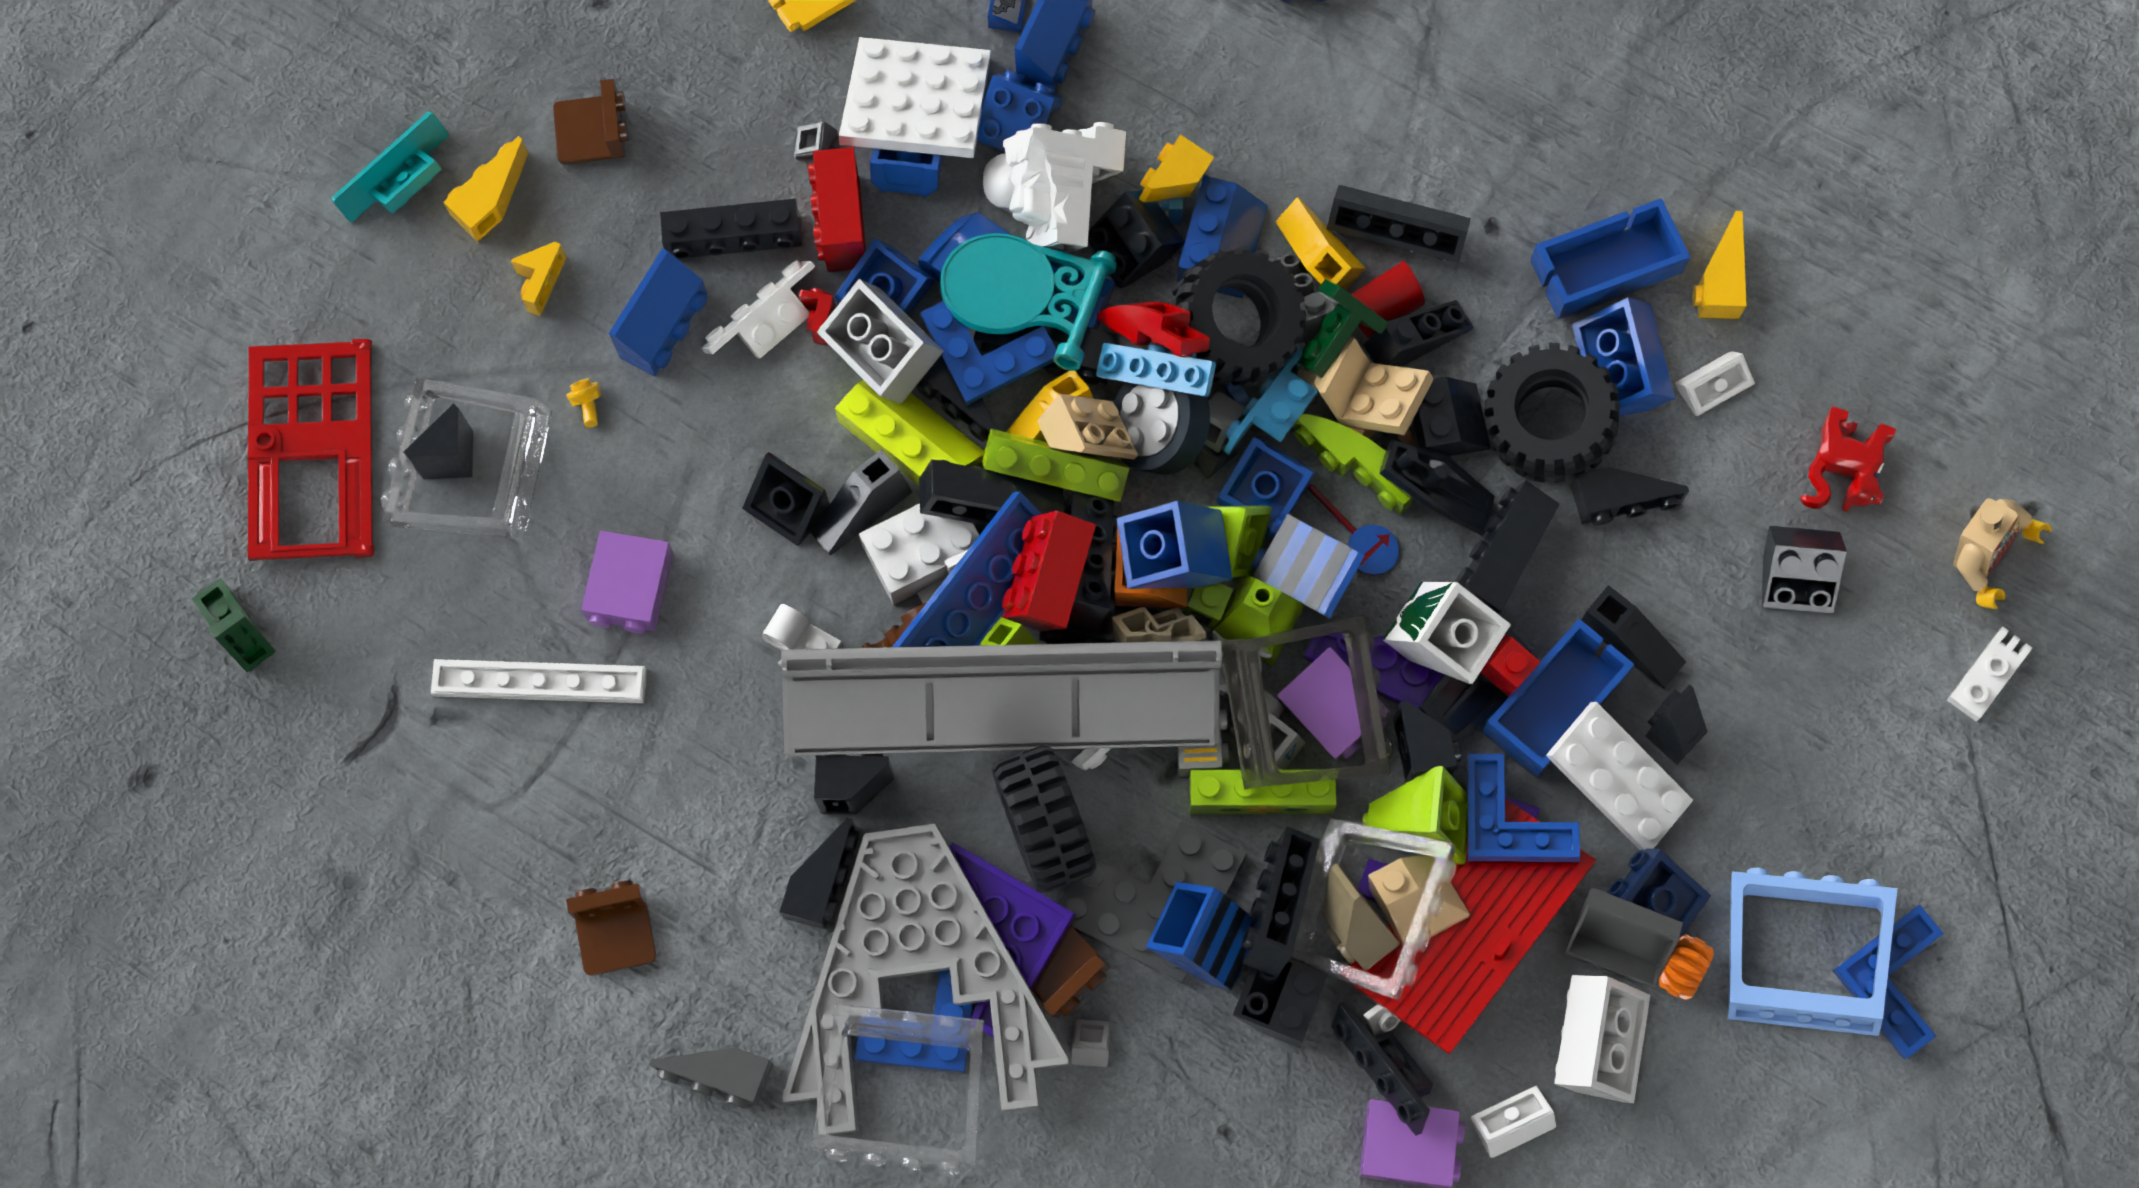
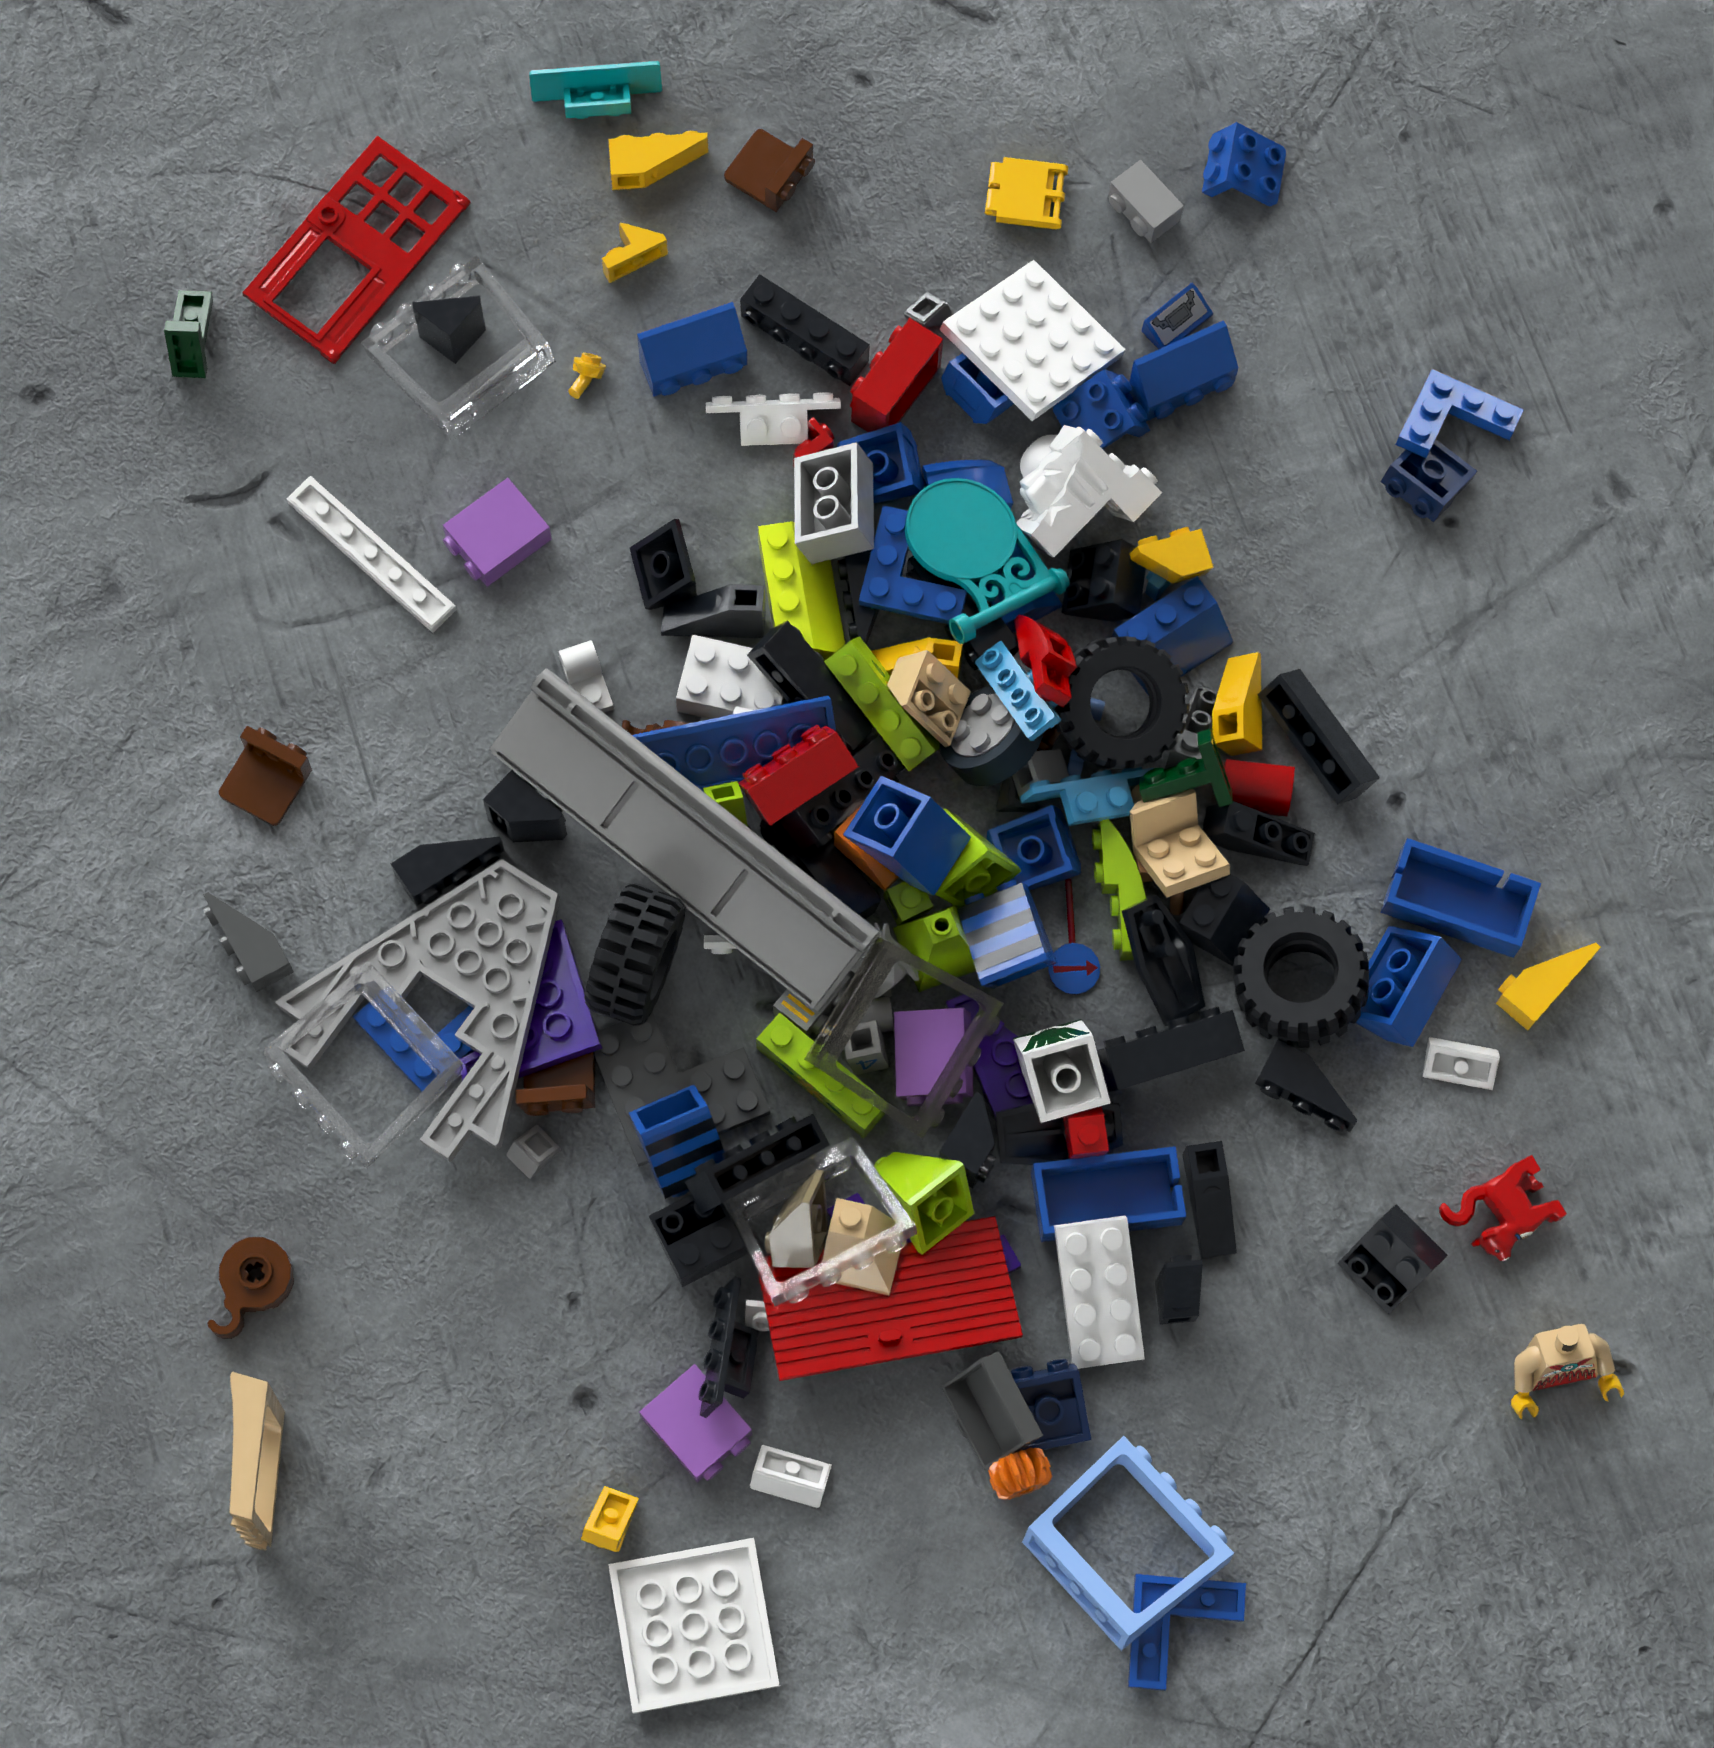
camera: 35 degrees right, 0 degrees up
(1162, 627) = (851, 889): dark tan slope -> none
(1498, 840) = (961, 1255): blue plate -> none
(1602, 1038) = (911, 1472): white slope -> none
(1988, 675) = (1467, 1463): white hinge -> none

